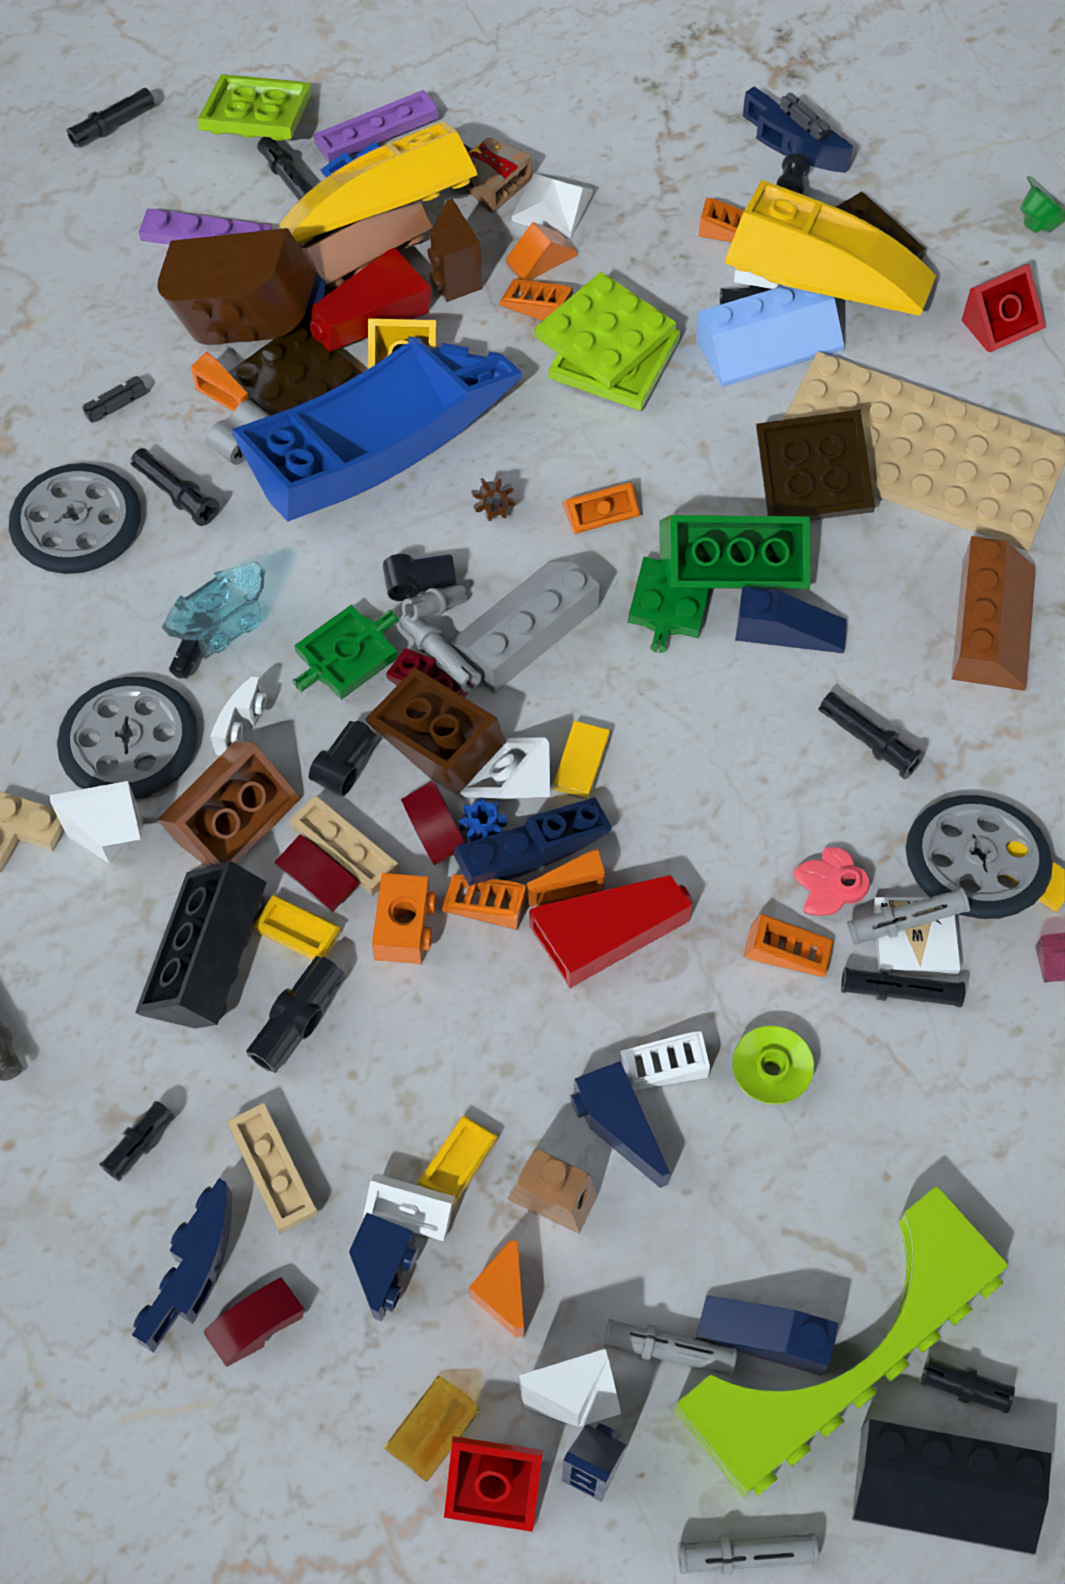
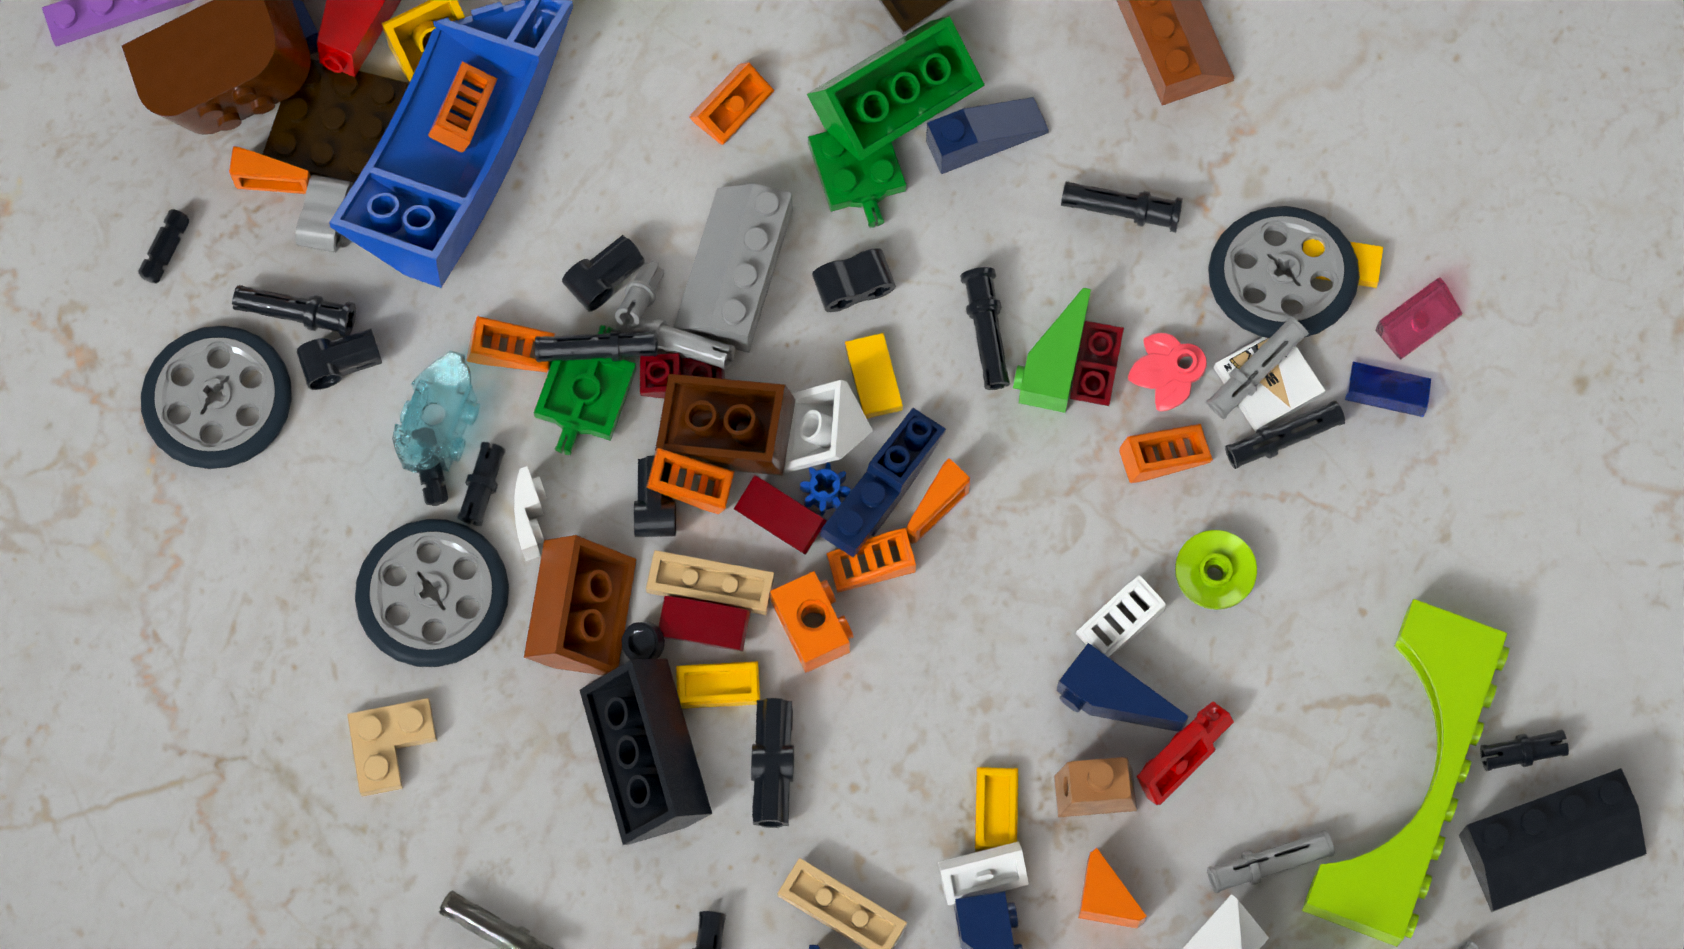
camera: 30 degrees left, 10 degrees up
(100, 817) = (476, 687): white slope -> none
(170, 532) = (328, 360): none -> black piece
(220, 678) = (481, 483): none -> black pin
(260, 860) = (643, 641): none -> black tile
(302, 568) = (493, 357): none -> orange slope
(375, 420) = (452, 129): none -> orange slope
(385, 624) = (605, 345): none -> black pin
(387, 747) = (722, 481): none -> orange slope
(498, 506) = (625, 152): reddish brown gear -> none
(608, 925) = (997, 524): red slope -> none
(611, 678) = (853, 280): none -> black axle
(648, 1206) = (1184, 753): none -> red hinge
(702, 755) = (984, 311): none -> black pin
(738, 820) = (1052, 361): none -> bright green slope
(769, 1333) = (1343, 802): dark blue slope -> none
(773, 845) = (1096, 363): none -> dark red slope
(1018, 1000) = (1388, 389): none -> clear blue slope

